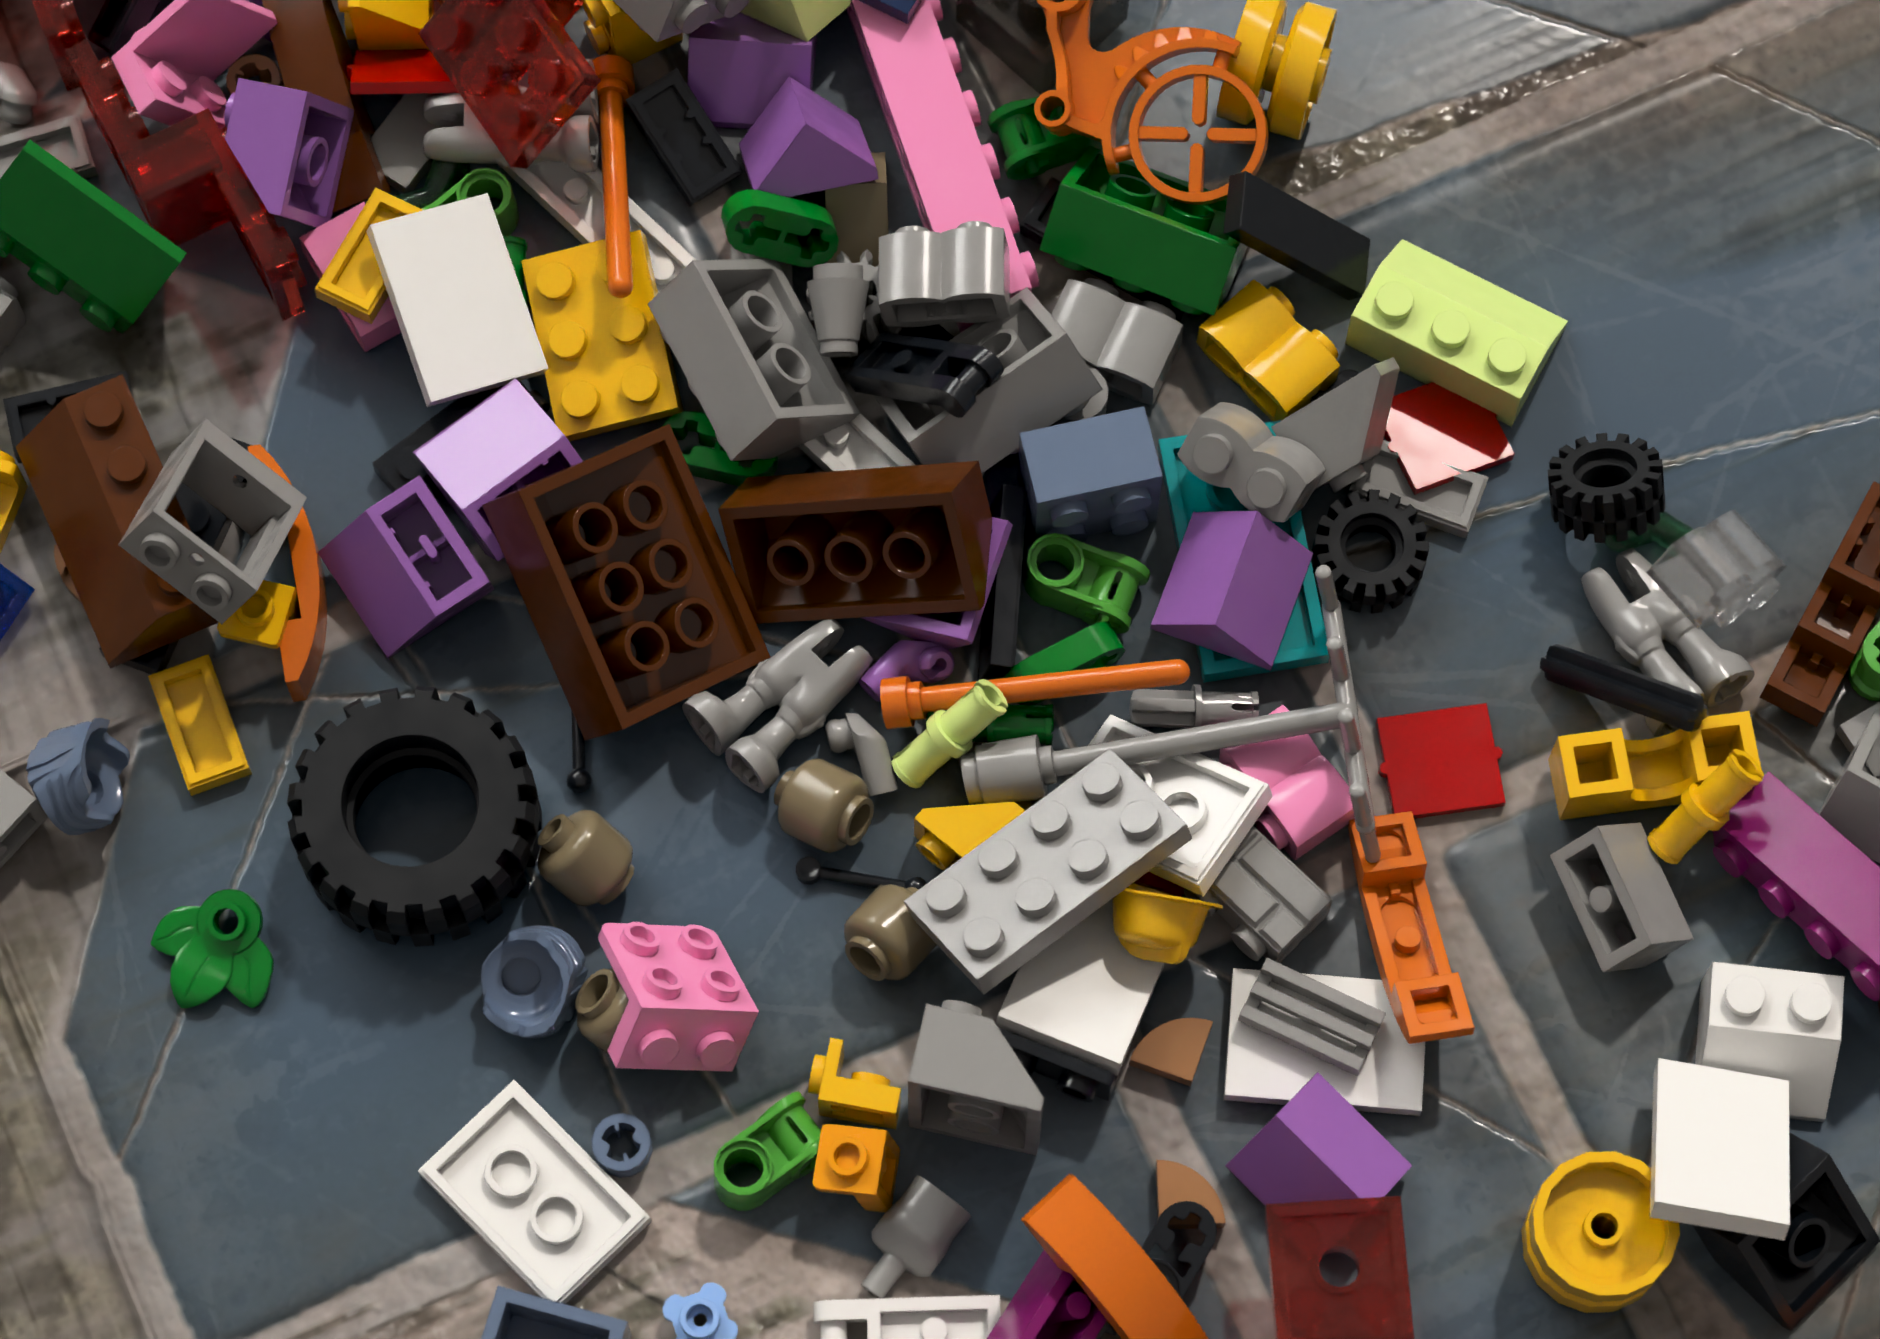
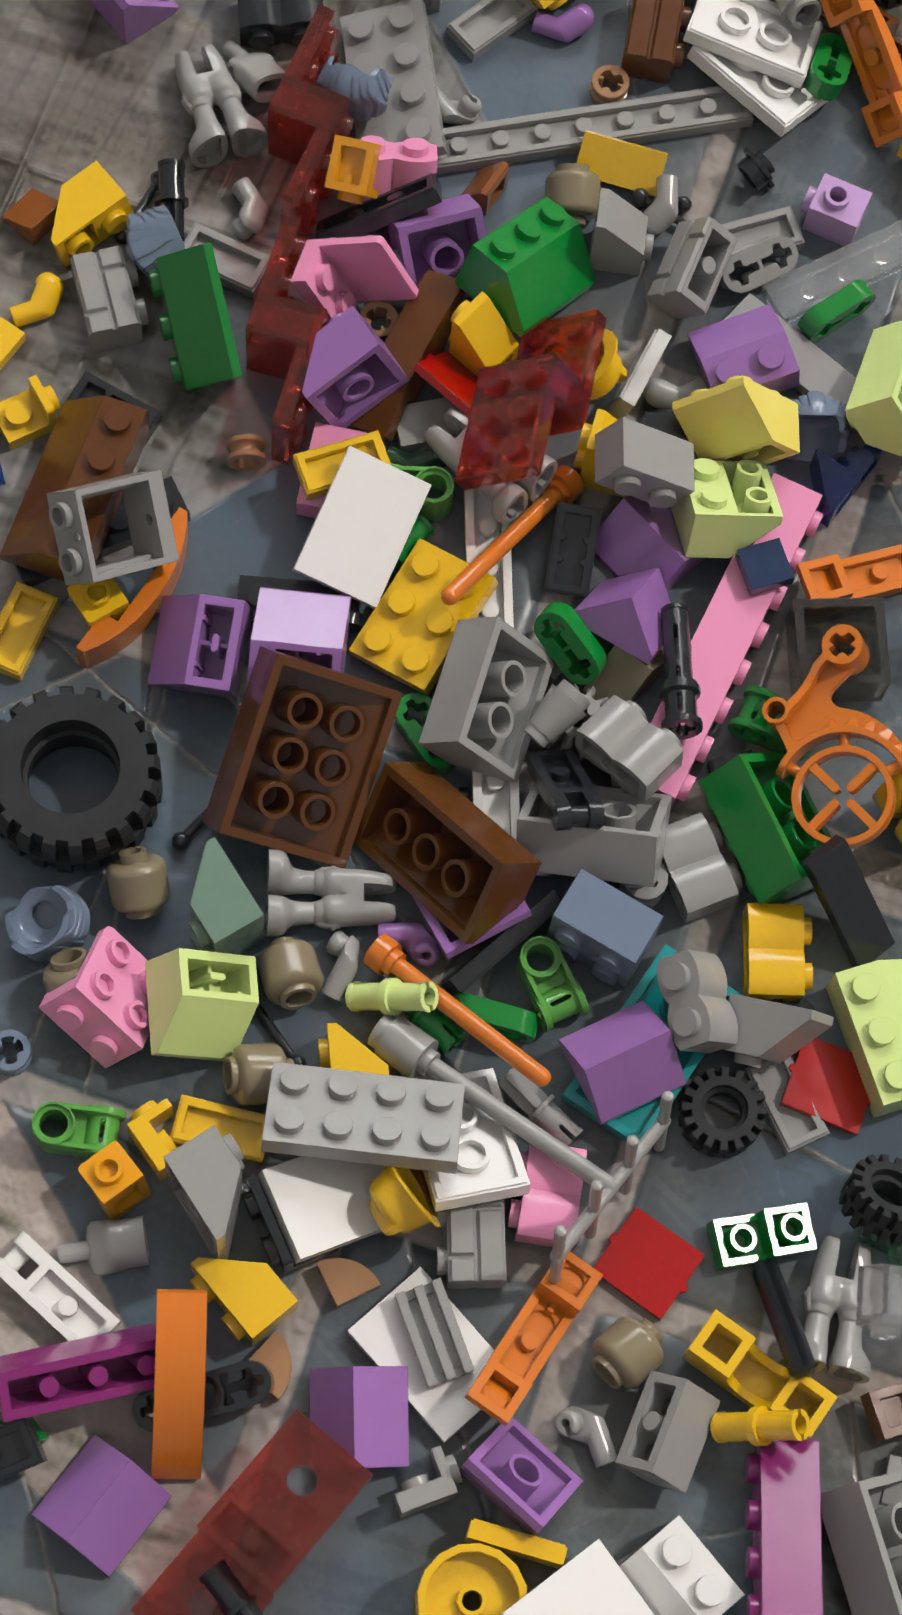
camera: 35 degrees right, 0 degrees up
(254, 334) = (246, 452): none -> medium nougat bush
(698, 800) = (222, 907): none -> sand green slope
(769, 914) = (200, 1002): none -> yellowish green slope
(888, 1029) = (198, 1115): none -> yellow tile
(932, 173) = (679, 686): none -> black pin
(1102, 1147) = (247, 1293): none -> yellow slope
(1451, 1176) = (421, 1493): none -> light grey bracket
(1510, 861) = (627, 1352): none -> dark tan head
(1521, 635) = (764, 1235): none -> slope
(1527, 1076) = (520, 1476): none -> medium lavender slope
(1543, 969) = (590, 1430): none -> light grey arm
(1586, 1136) = (516, 1543): none -> yellow tile

